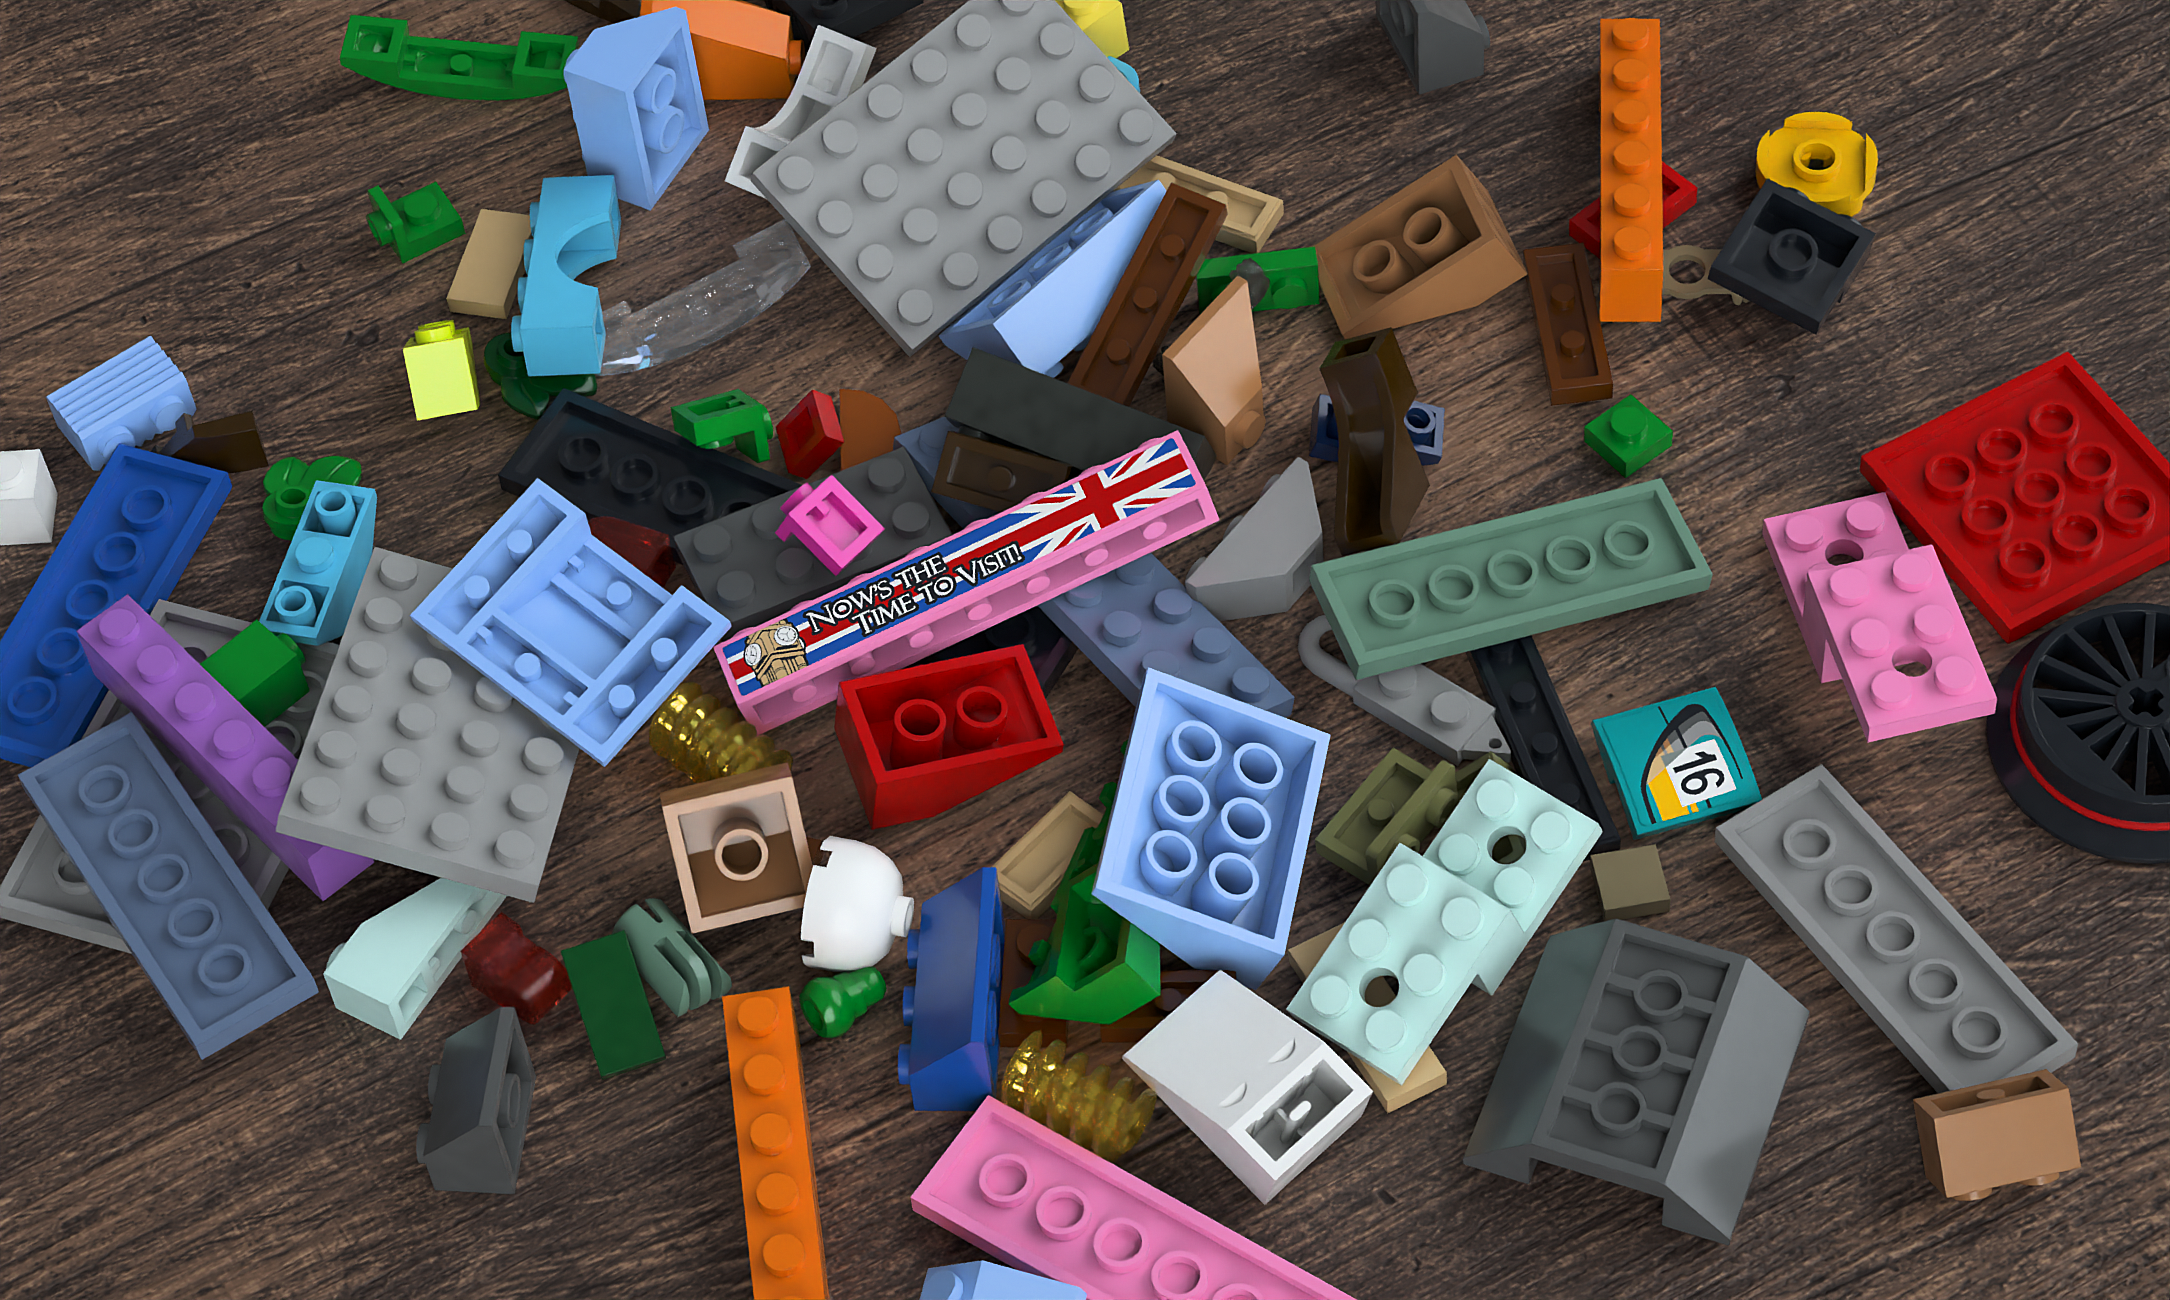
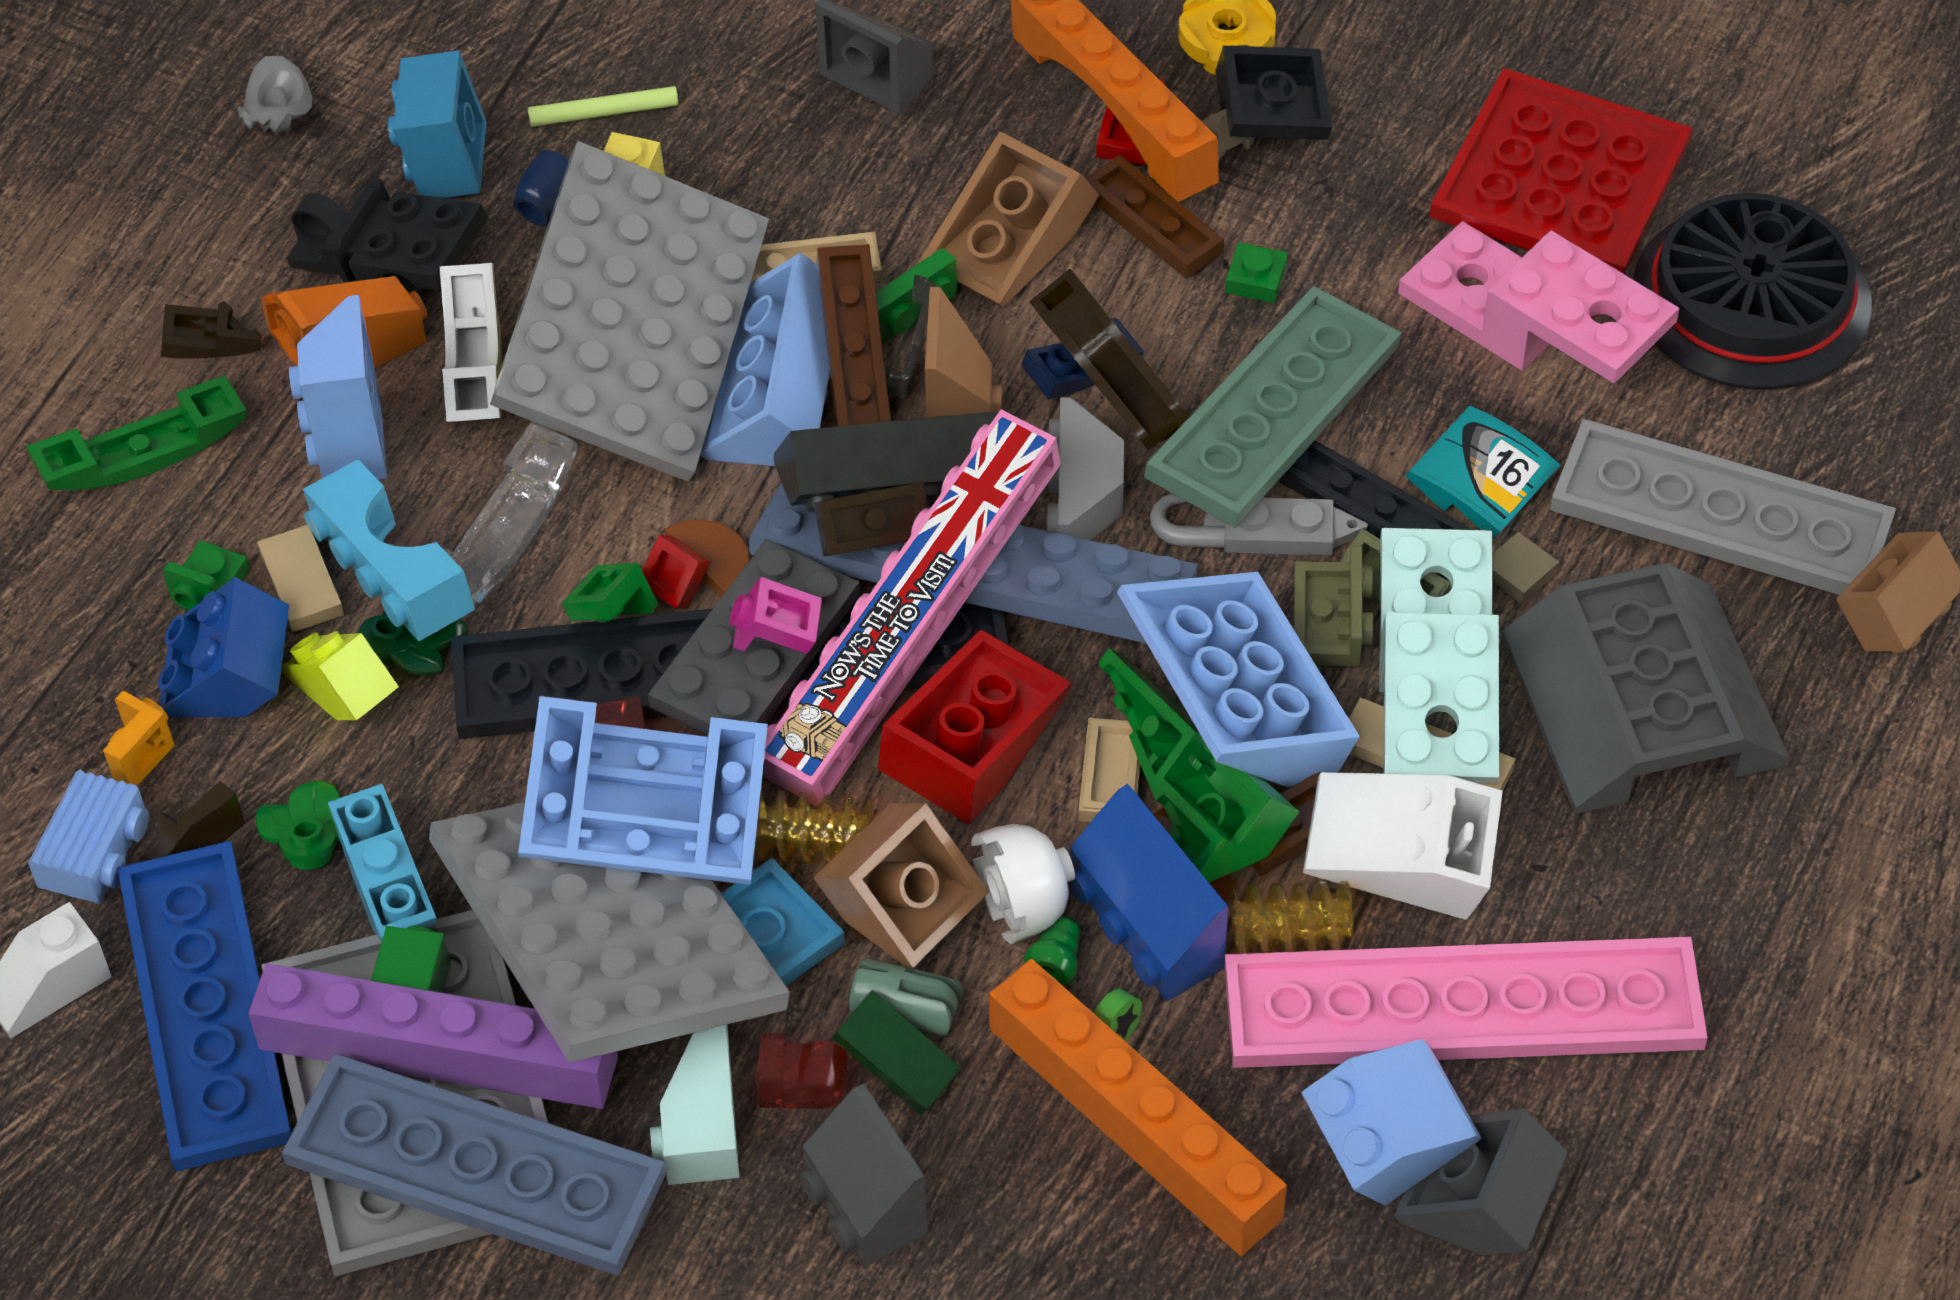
camera: 40 degrees left, 0 degrees up
(232, 340) = (142, 740): none -> light orange bracket
(365, 297) = (224, 654): none -> blue slope
(610, 826) = (784, 921): none -> dark azure plate
(838, 1095) = (1120, 1012): none -> bright green tile

